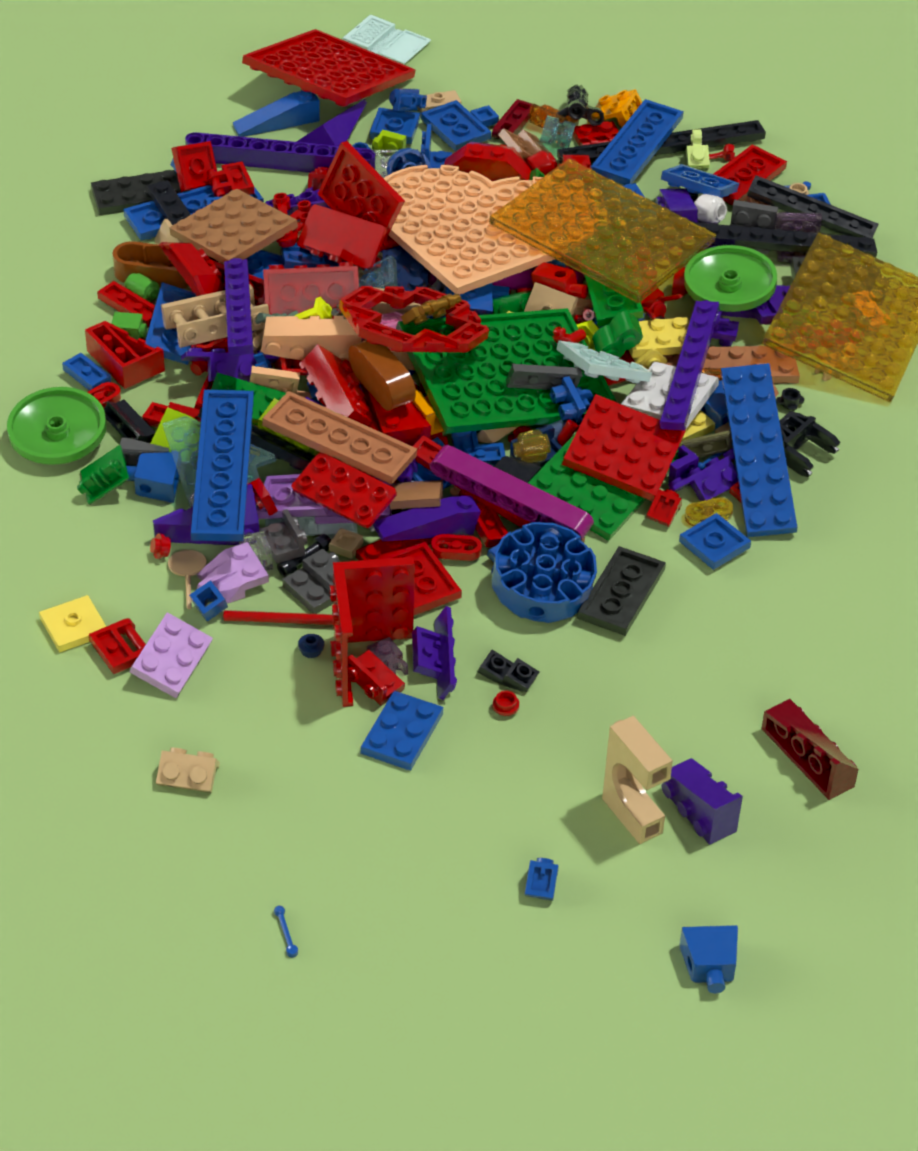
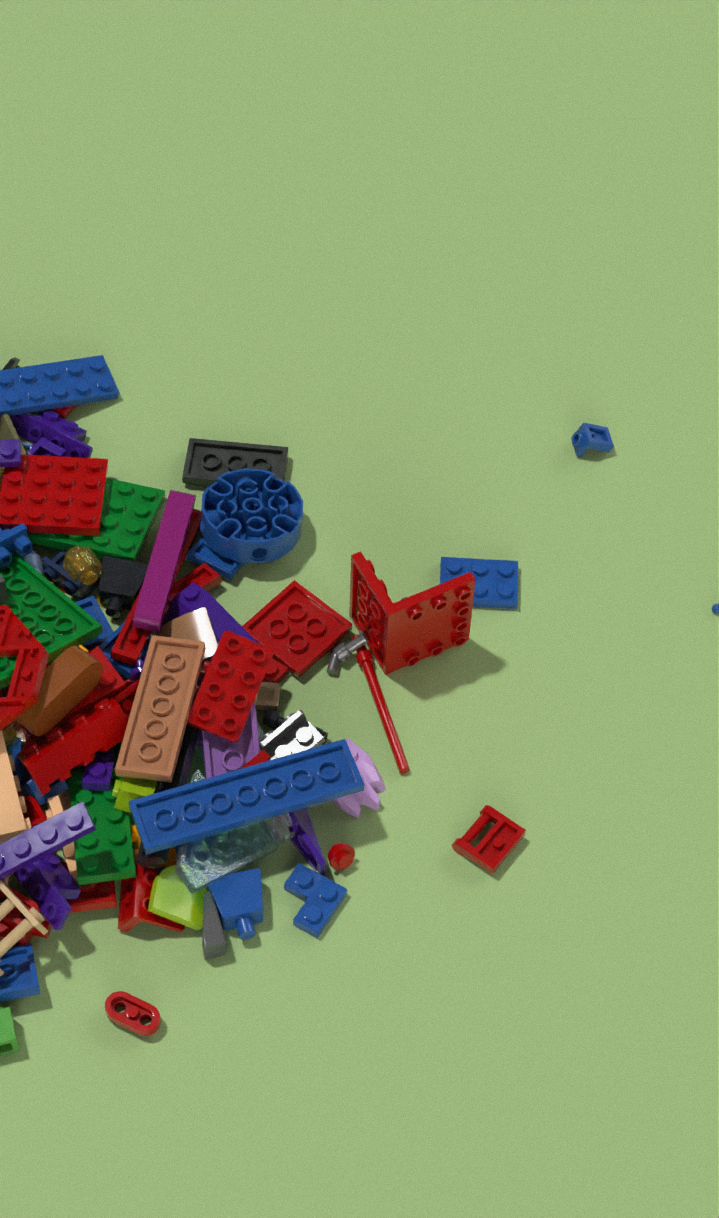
camera: 110 degrees left, 10 degrees up
(56, 425) = (205, 1028): bright green dish -> none
(71, 622) = (476, 897): light yellow plate -> none
(85, 371) = (90, 1046): blue plate -> none
(103, 475) = (260, 949): green hinge -> none
(122, 356) = (58, 1010): red wedge -> none
(128, 421) = (164, 964): black piece -> none
(128, 528) = (321, 898): none -> blue plate
(154, 414) = (138, 940): red plate -> none
(171, 655) = (484, 788): lavender plate -> none
(187, 564) = (351, 828): tan piece -> none
(187, 770) = (610, 724): tan bracket -> none
(206, 594) = (402, 780): blue plate -> none
(311, 645) = (408, 688): dark blue plate -> none
(313, 581) = (327, 701): dark grey plate -> none
(434, 652) = (392, 570): dark purple bracket -> none
(456, 547) = (234, 606): red plate -> none
(505, 672) = (372, 524): black slope -> none
(505, 703) = (413, 515): red plate -> none
(567, 432) = (42, 548): red arm -> none
(634, 763) = (485, 384): tan arch -> none
(664, 507) = (117, 455): red bracket -> none
(702, 510) = (96, 424): clear yellow plate -> none
(703, 801) = (463, 353): dark purple wedge -> none
(710, 954) = (608, 320): blue torso -> none
(715, 541) = (141, 412): blue plate -> none
(809, 749) = (369, 299): dark red wedge -> none

